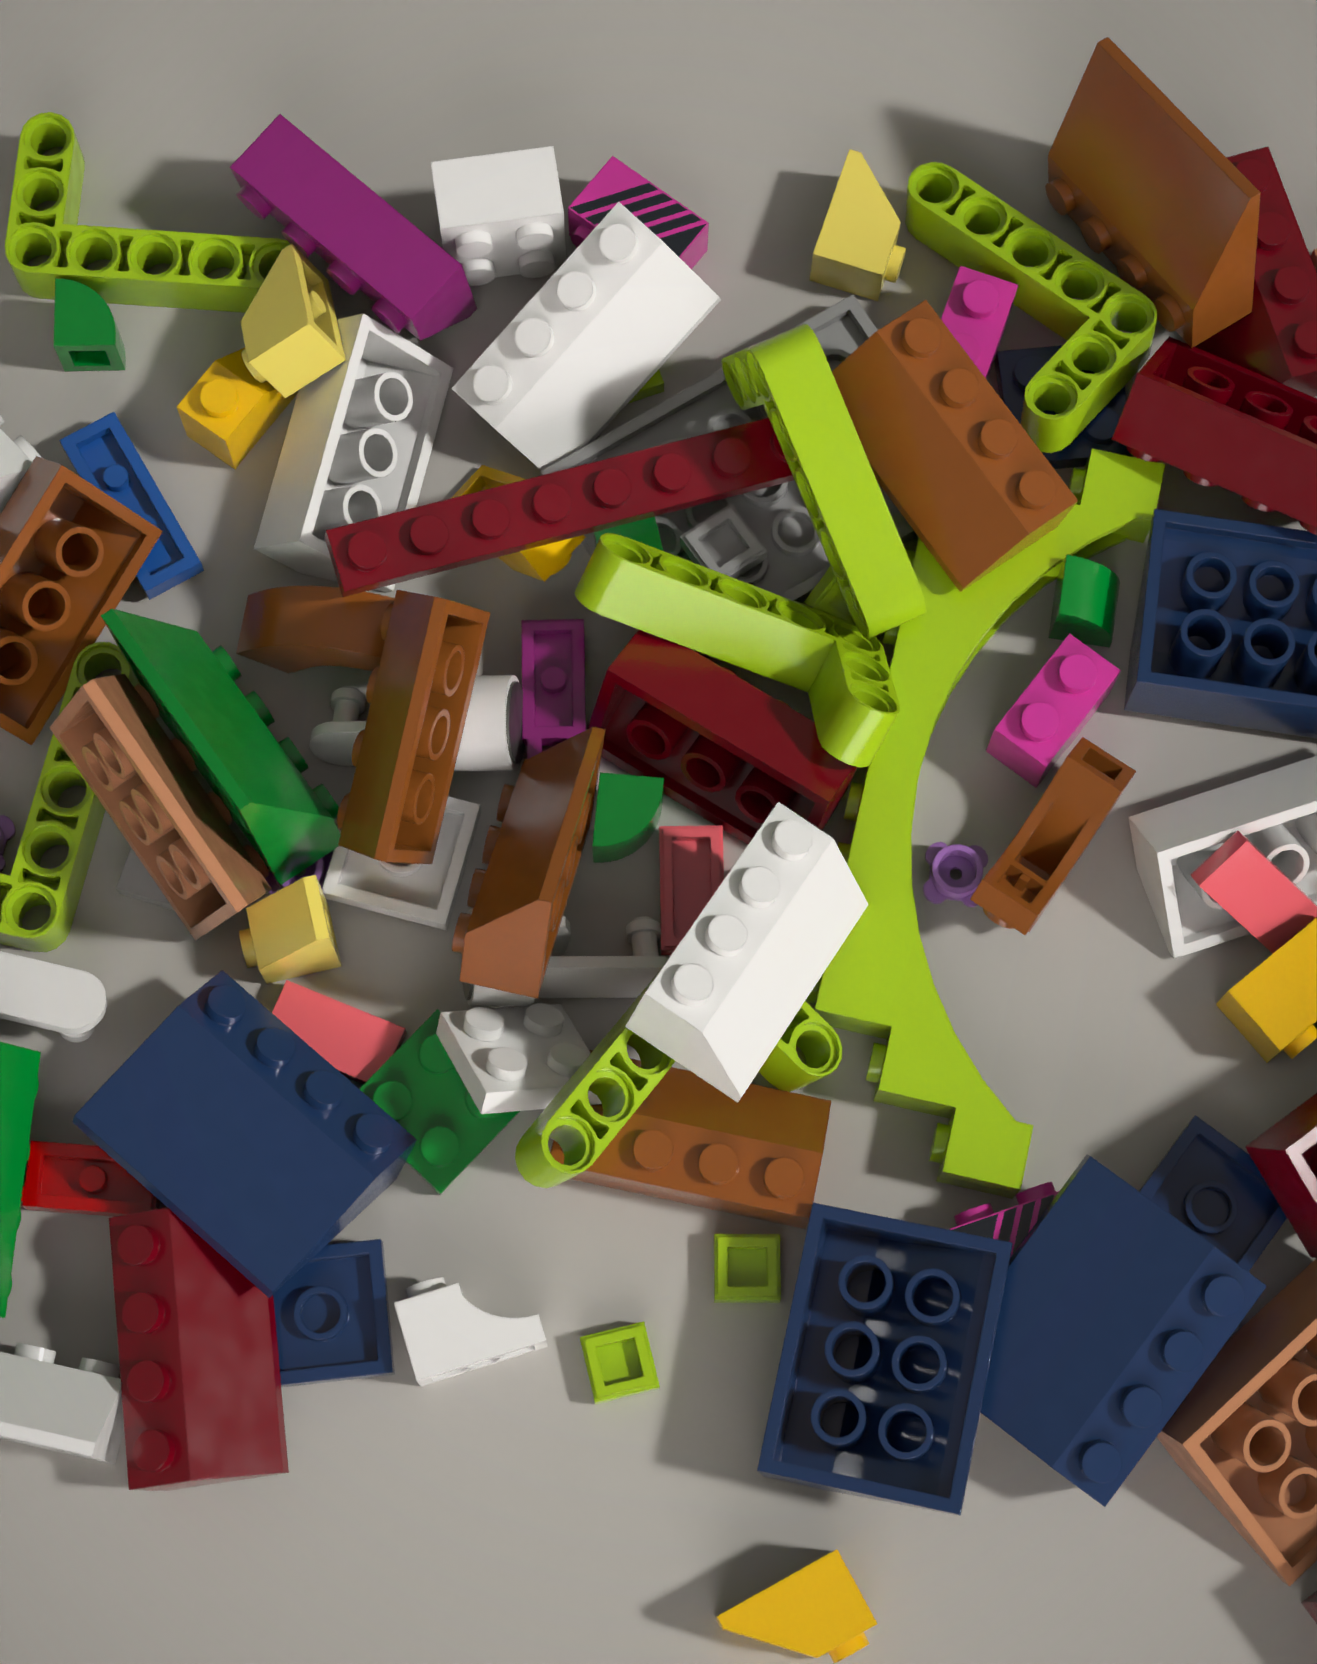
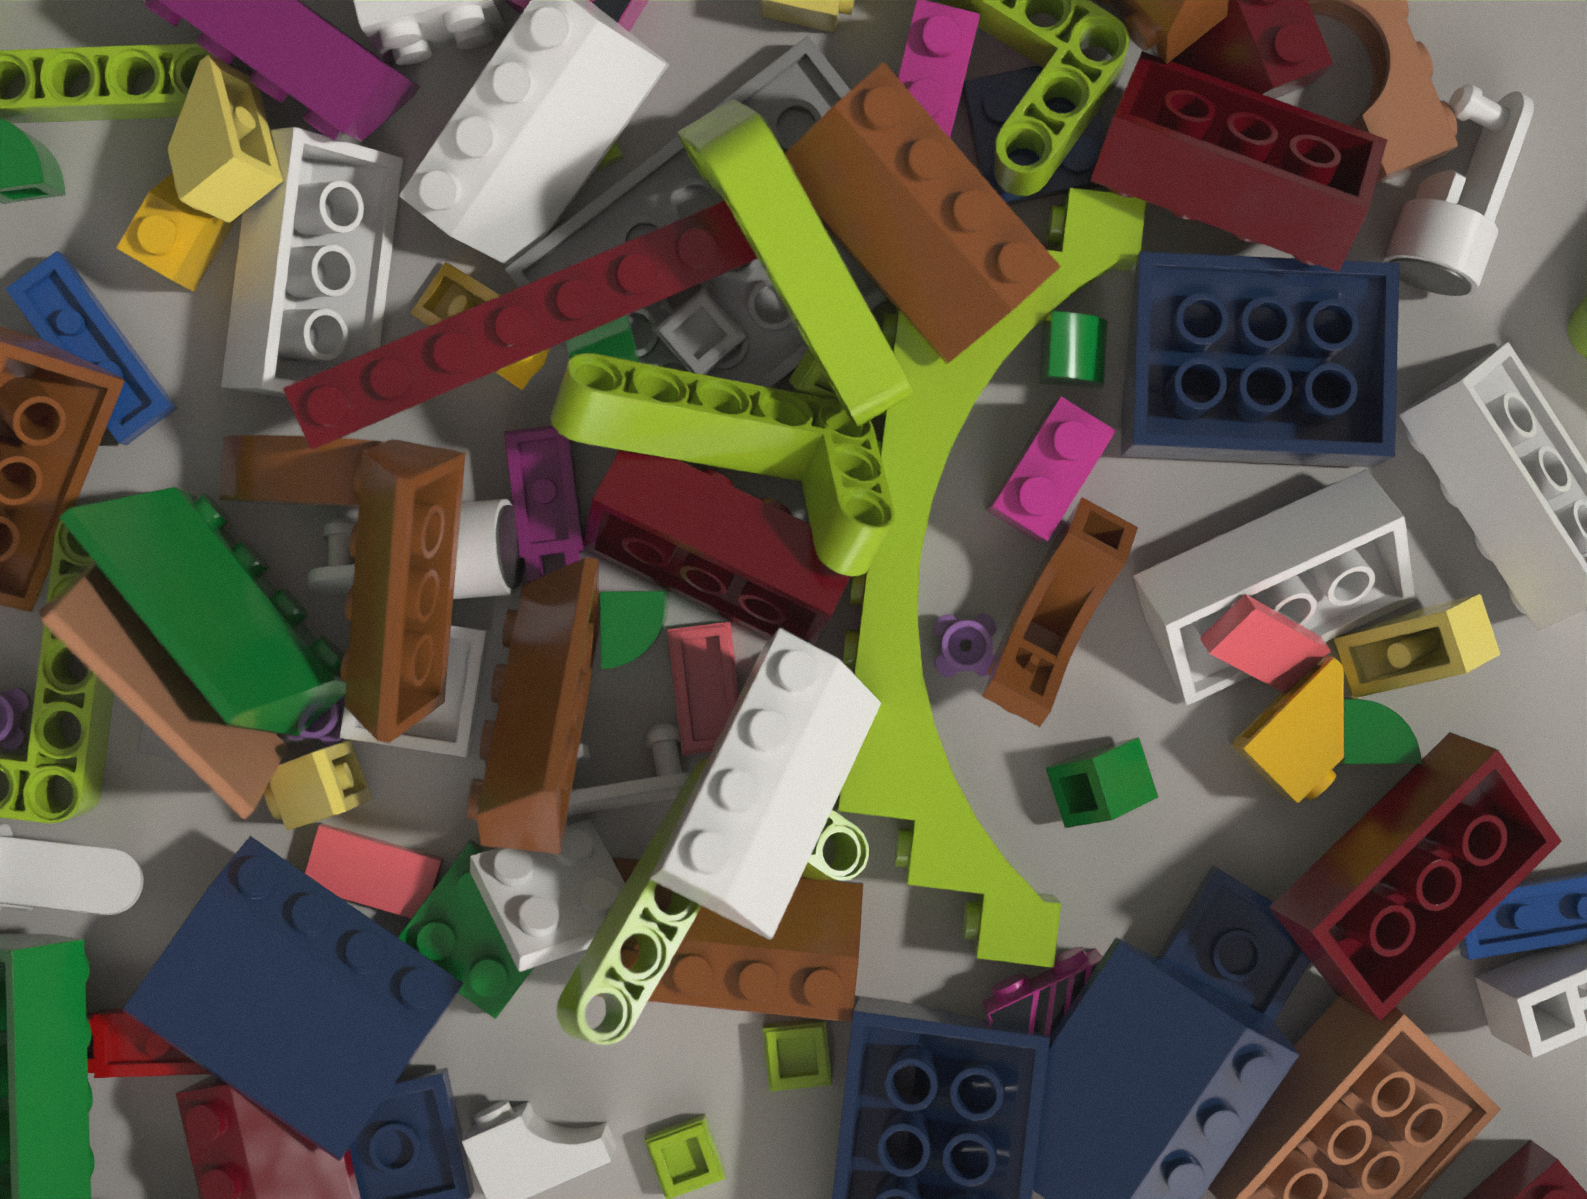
camera: 10 degrees left, 15 degrees up
(1082, 1020) = (1102, 783): none -> green brick

